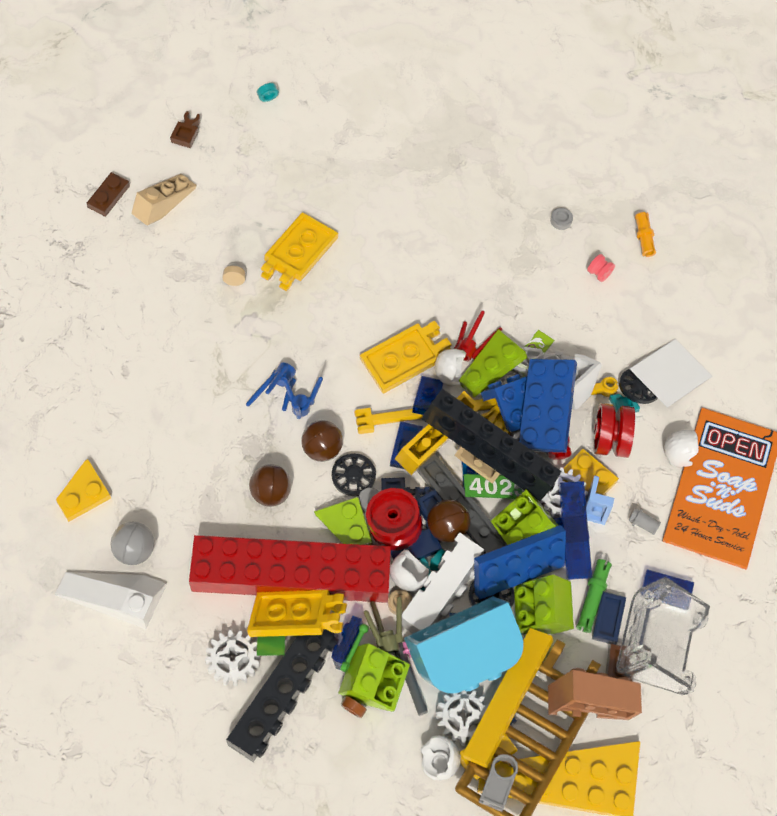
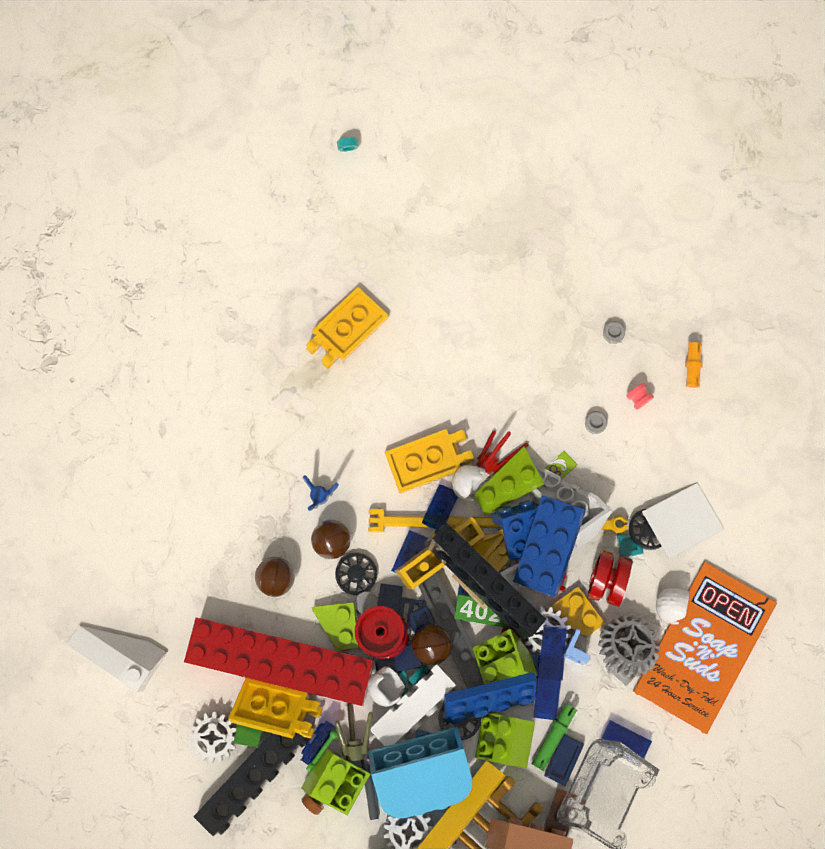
camera: 20 degrees right, 15 degrees up
(82, 492) = (105, 549): yellow wing -> none
(108, 194) = (174, 236): reddish brown plate -> none
(132, 543) = (140, 612): light grey piece -> none
(161, 198) = (224, 250): tan slope -> none
(186, 132) = (258, 178): reddish brown plate -> none
(234, 275) = (279, 347): tan tile -> none
(283, 371) = (306, 462): blue plant -> none
(392, 600) = (377, 710): tan tile -> none
(563, 299) = (596, 422): none -> light grey tile
(649, 492) = (620, 654): none -> light grey gear

